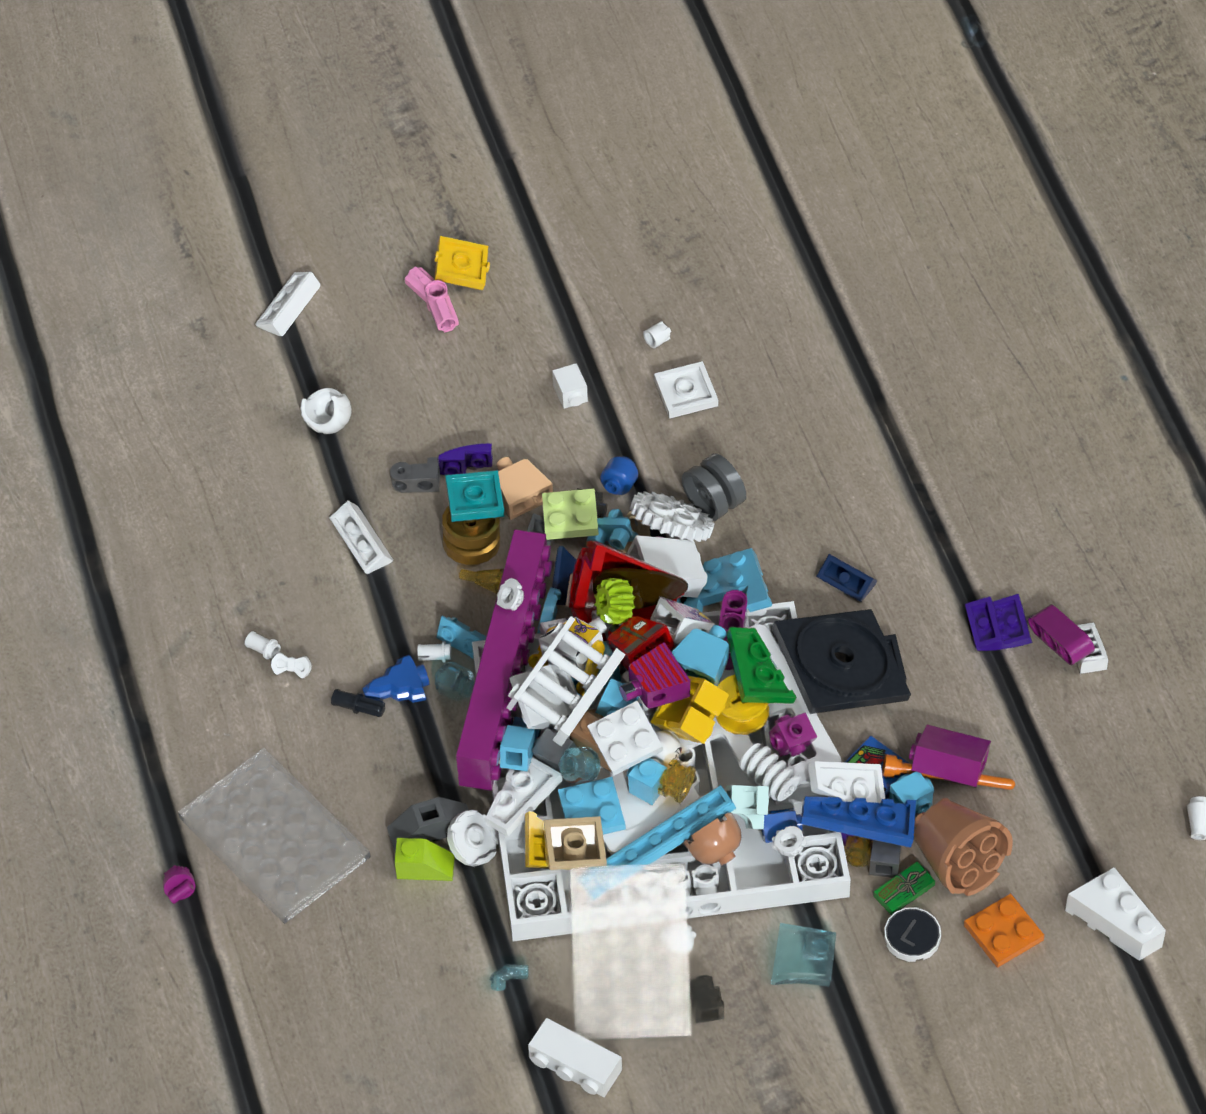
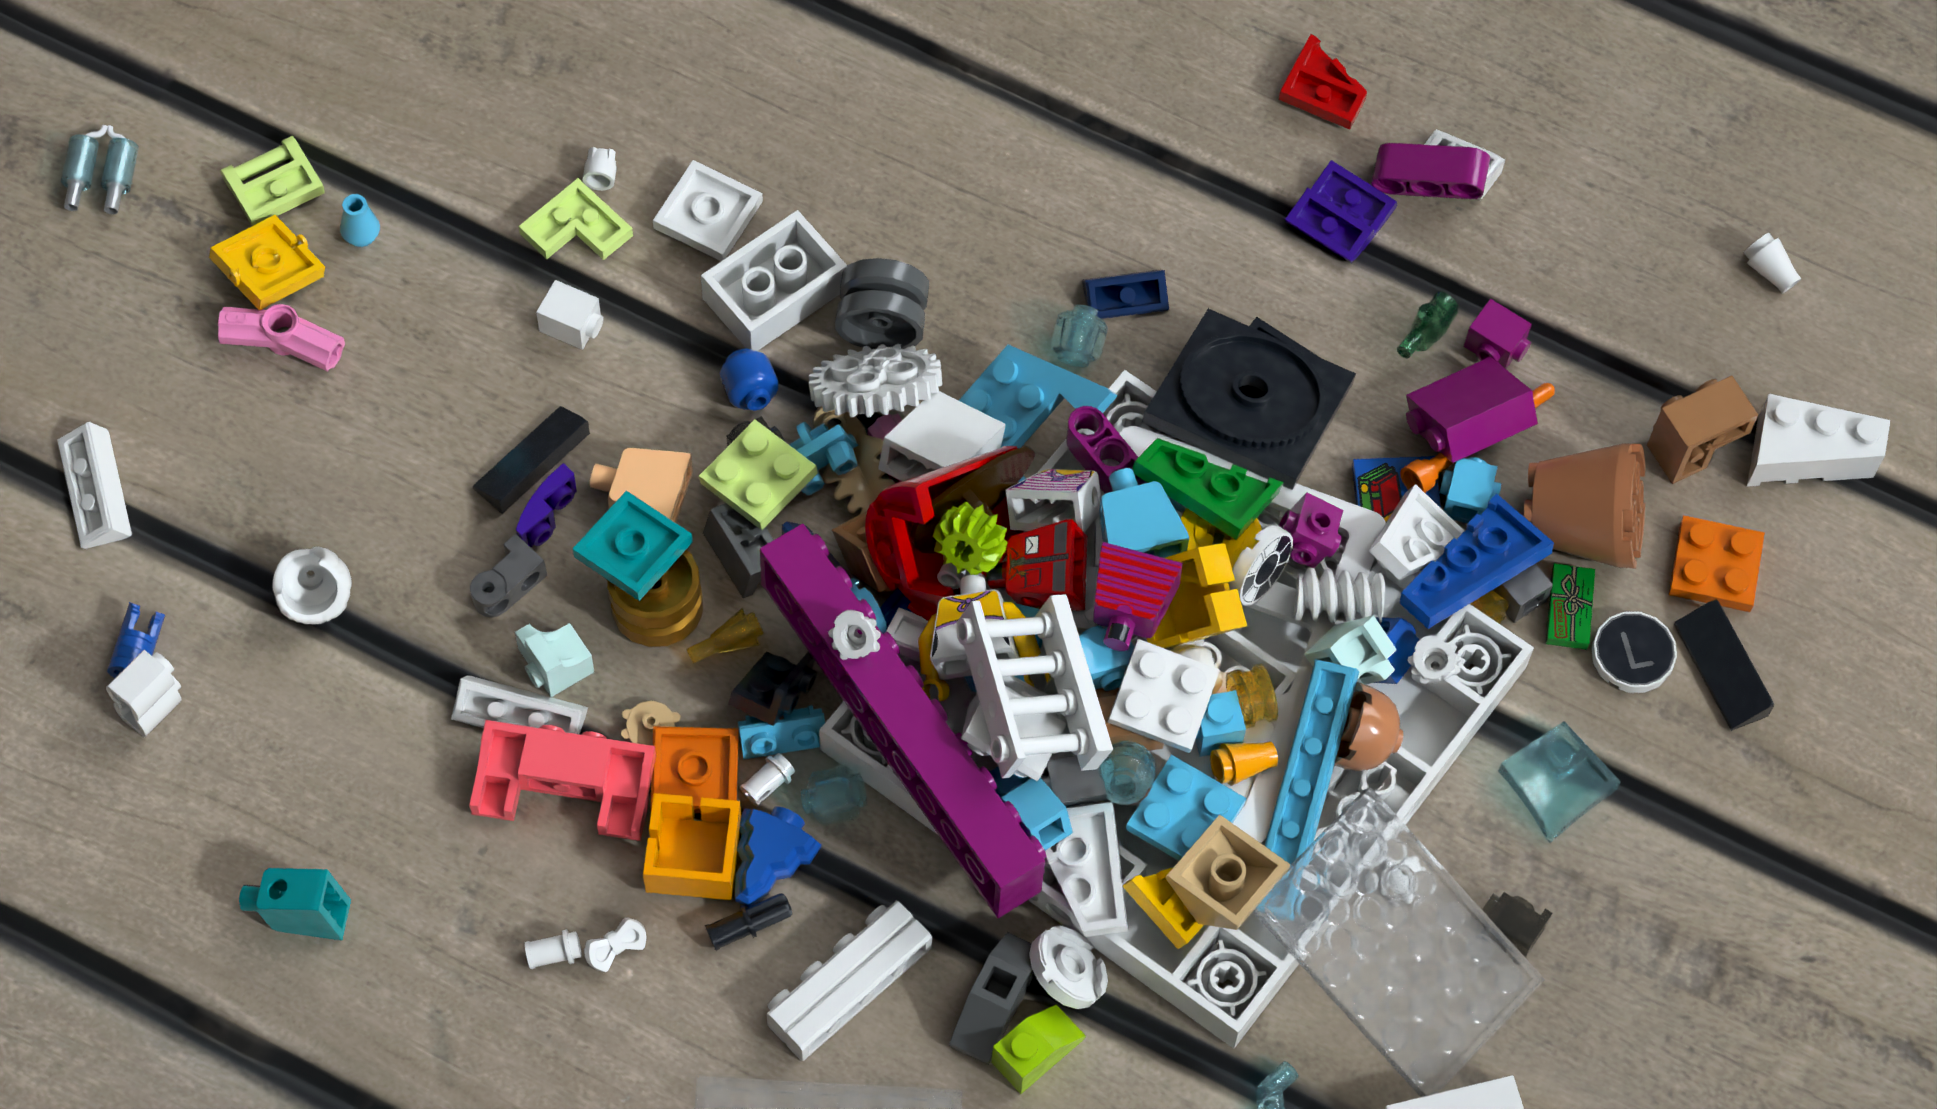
camera: 50 degrees left, 10 degrees up
(176, 526) = (299, 902): none -> teal torso
(209, 398) = (145, 692): none -> white brick
(228, 381) = (133, 642): none -> blue hinge
(350, 571) = (567, 766): none -> coral bracket
(367, 655) = (693, 854): none -> light orange piece
(372, 763) = (848, 980): none -> white brick
(398, 525) = (554, 657): none -> light aqua brick
(407, 622) = (695, 763): none -> orange tile
(408, 590) = (643, 718): none -> tan piece
(432, 162) = (81, 163): none -> clear light blue piece
(471, 610) = (773, 687): none -> black bracket
(499, 435) = (532, 458): none -> black slope
(504, 232) = (278, 189): none -> yellowish green plate
(521, 276) = (358, 222): none -> medium azure cone
(621, 344) = (575, 213): none -> yellowish green plate
(641, 806) = (1241, 760): none -> light orange cone
(675, 439) = (773, 281): none -> white brick
(745, 726) = (1262, 566): none -> white tile
(797, 576) = (1079, 336): none -> clear light blue head
(950, 978) = (1724, 665): none -> black slope
(978, 704) = (1429, 324): none -> clear green piece
(1009, 737) = (1498, 335): none -> magenta brick
(1055, 558) = (1323, 86): none -> red wing
(1058, 851) = (1697, 425): none -> medium nougat brick

